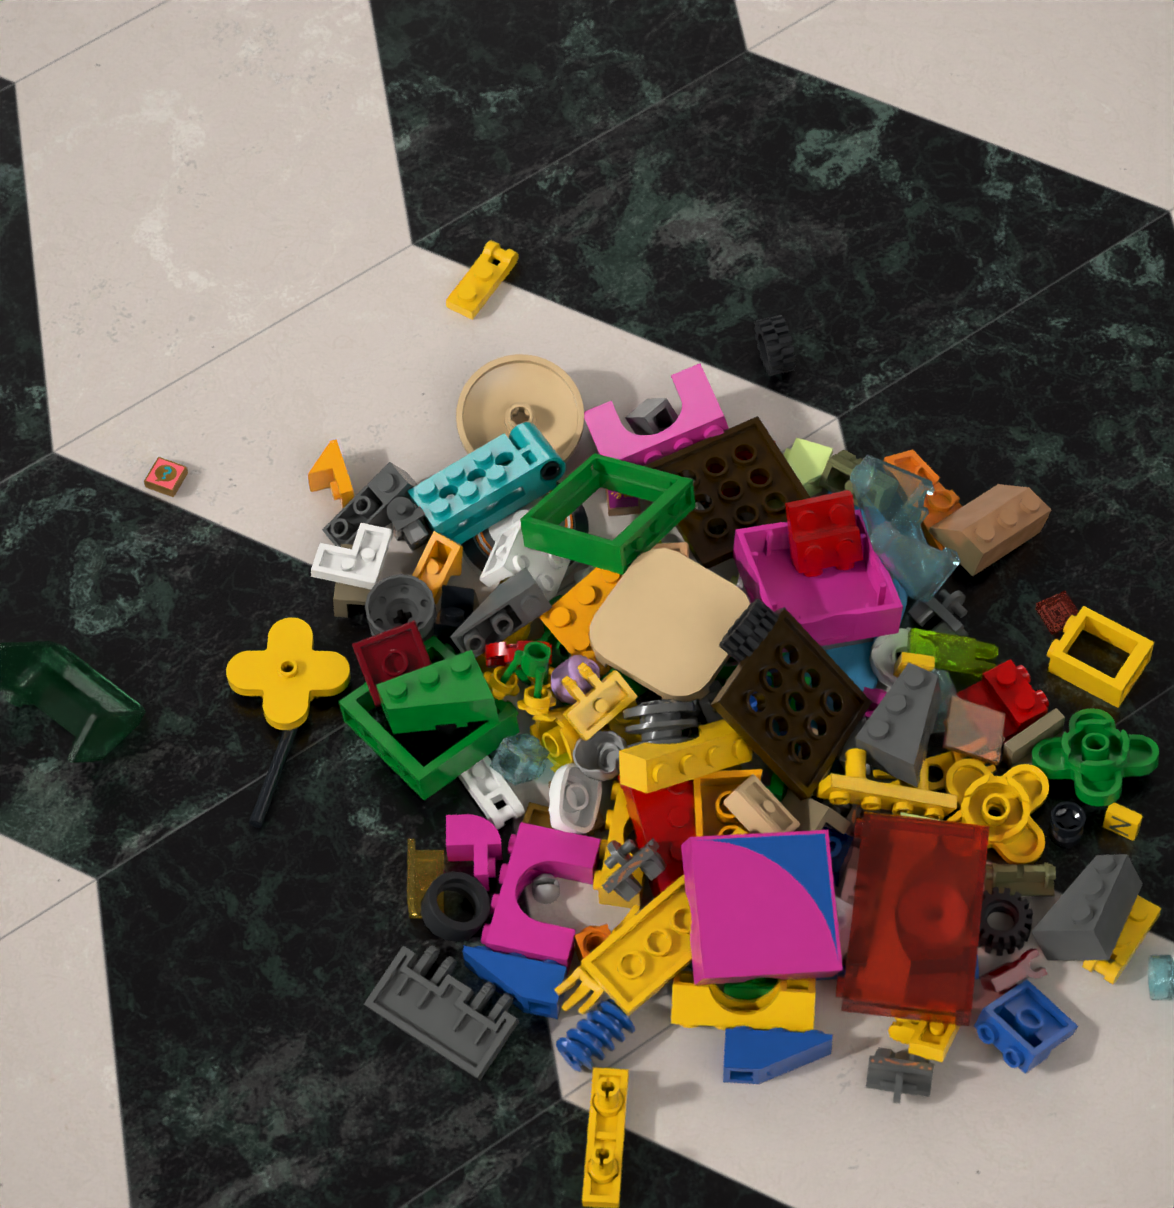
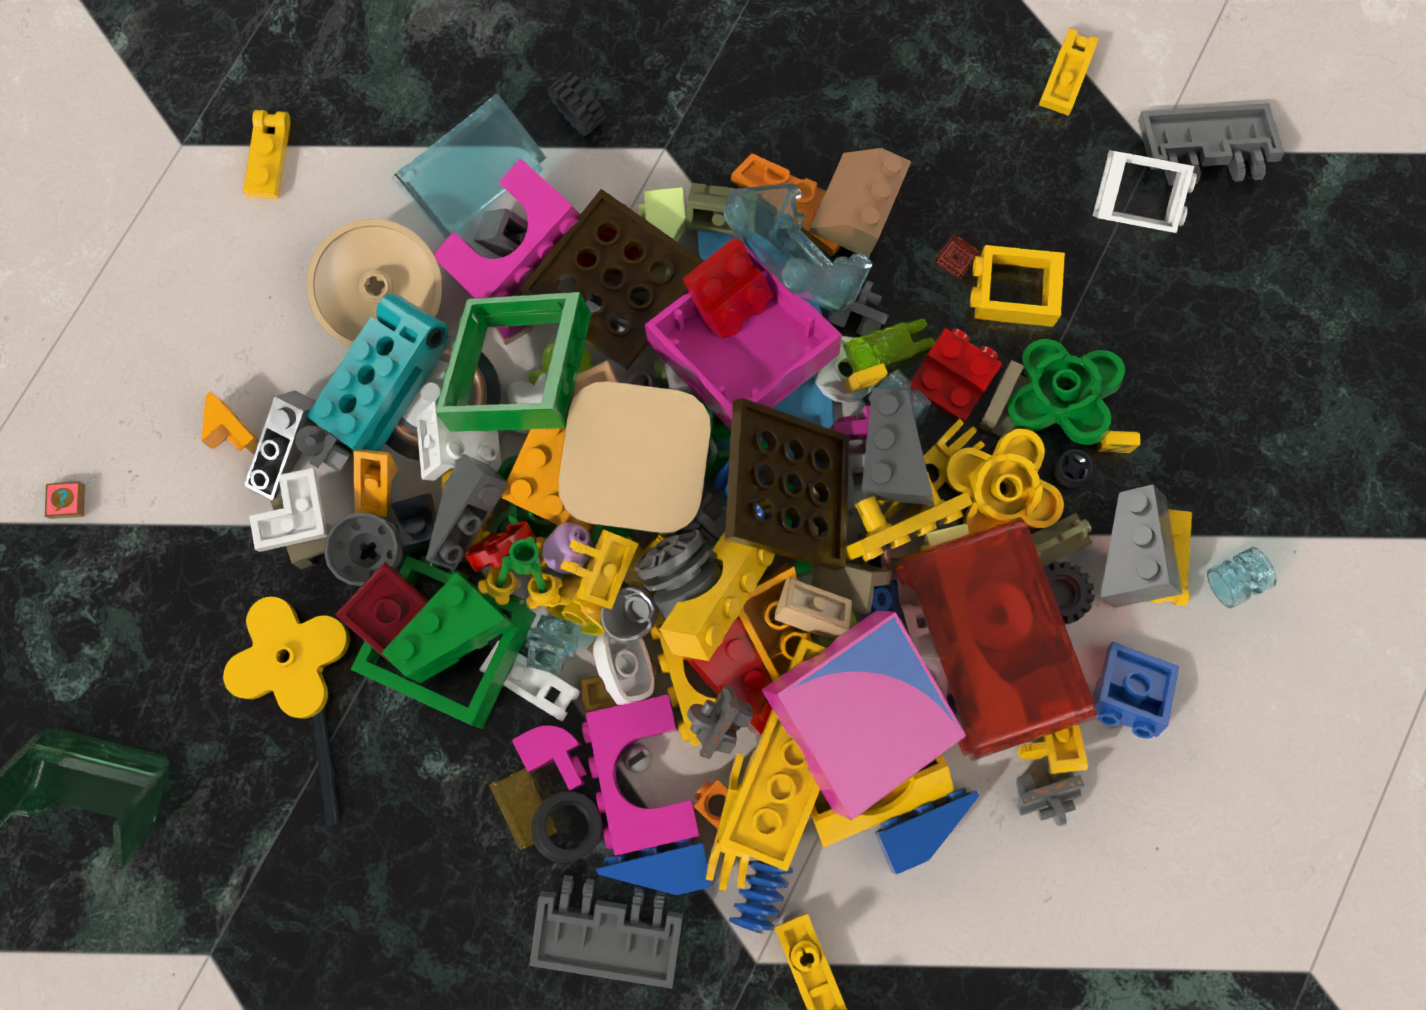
camera: 25 degrees left, 20 degrees up
(640, 358) = (465, 165): none -> clear light blue windscreen
(749, 630) = (721, 440): black tyre -> none
(974, 730) = (951, 419): clear orange piece -> none
(1008, 974) = (1096, 644): plate -> none

